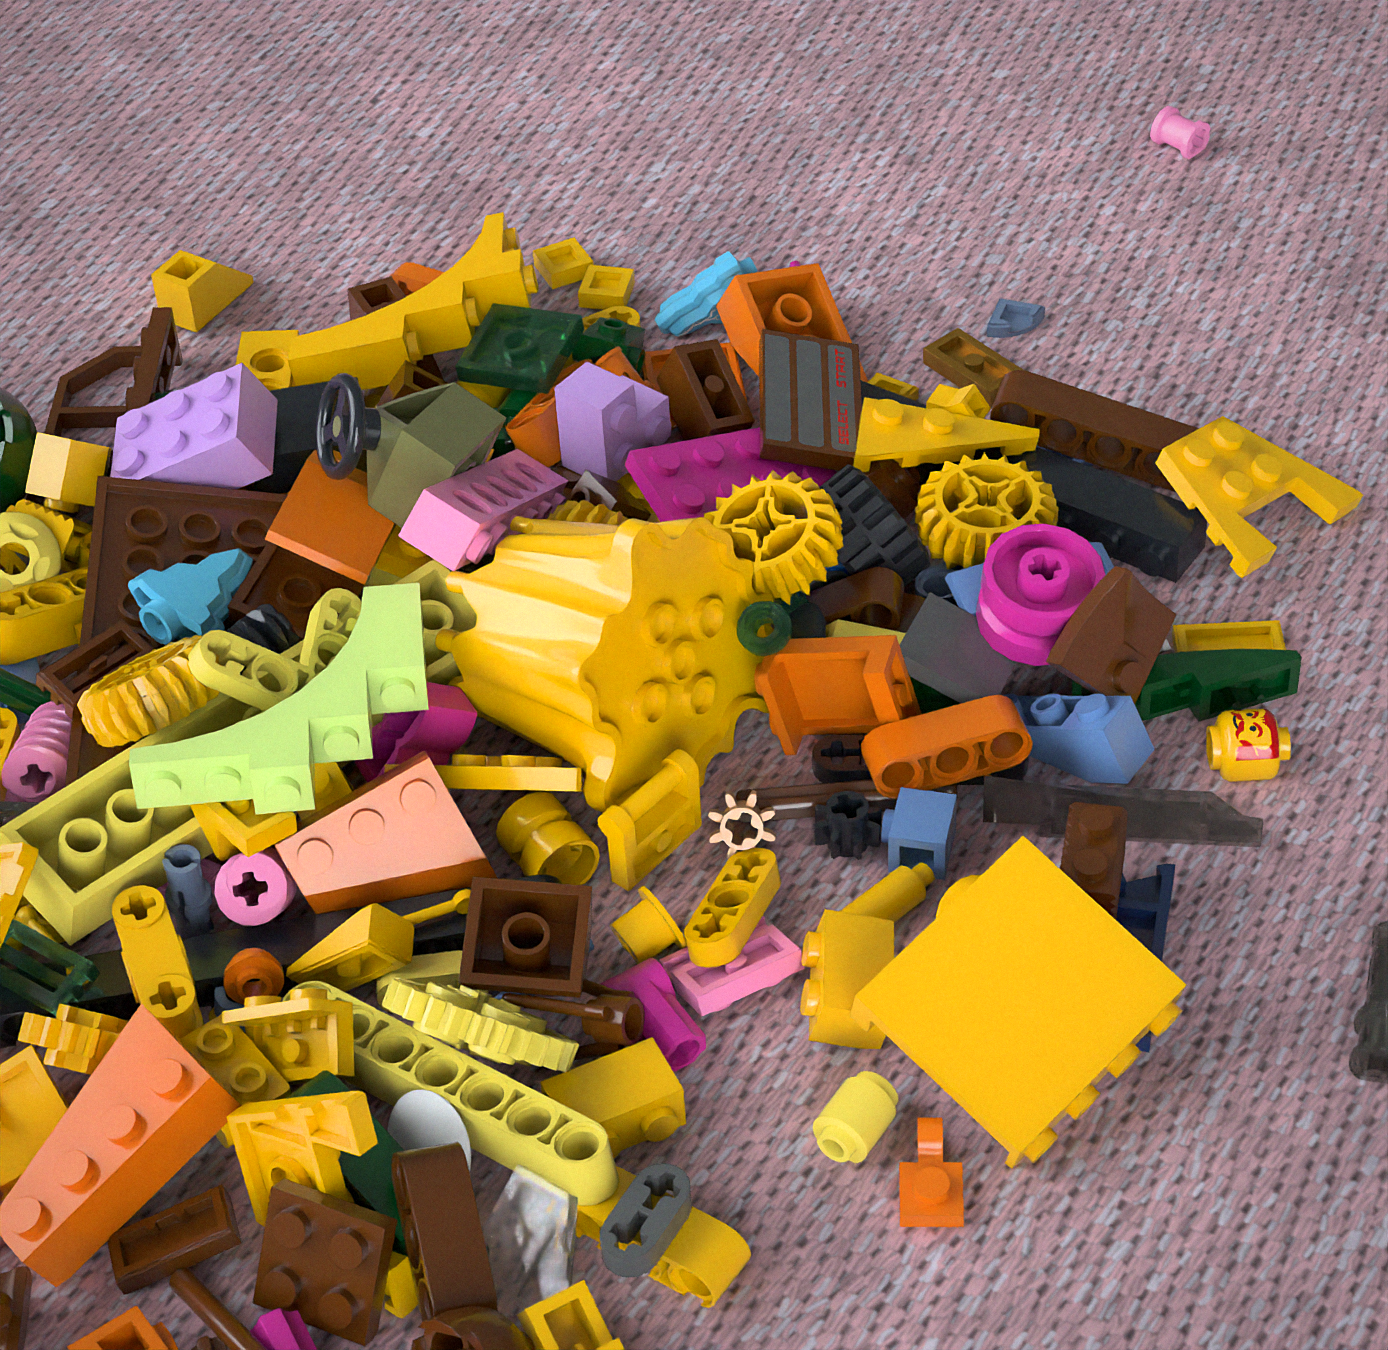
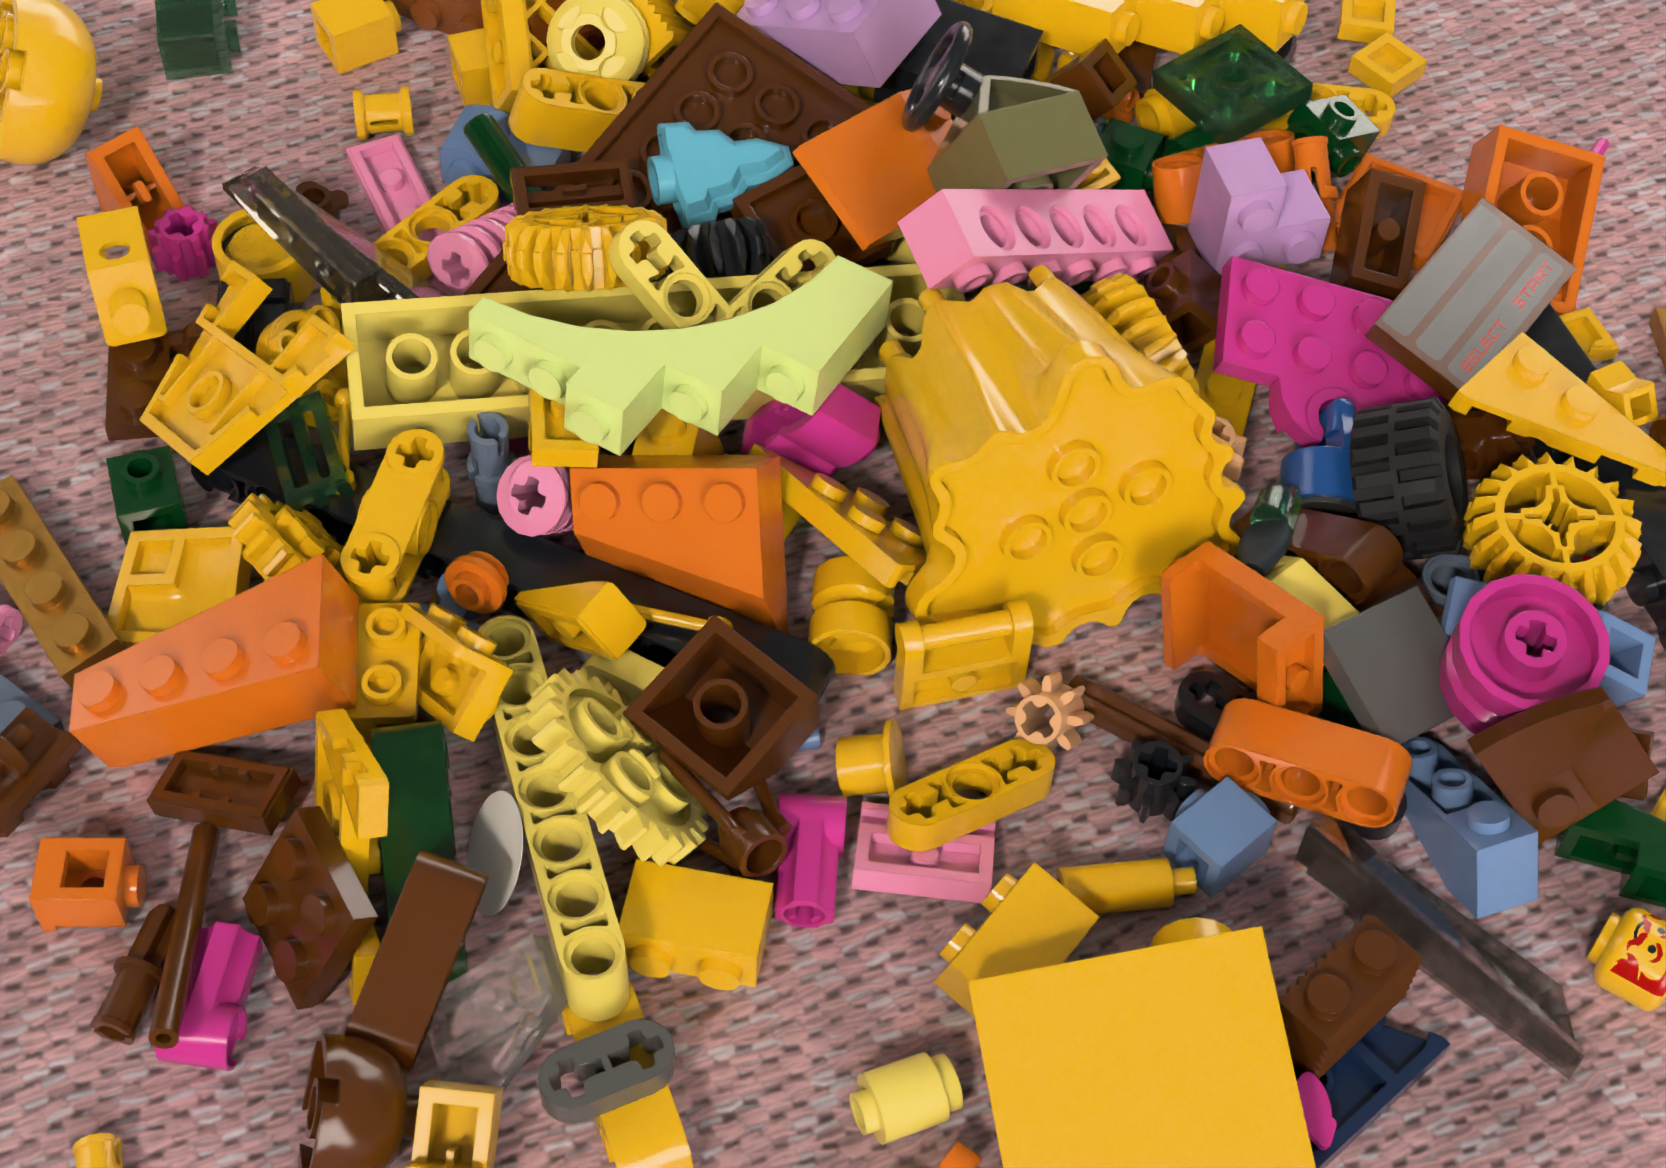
camera: 30 degrees right, 10 degrees up
(697, 303) = (1454, 131): medium azure rock -> none
(757, 615) = (1191, 514): clear green plate -> none
(765, 529) = (1285, 414): yellow gear -> none

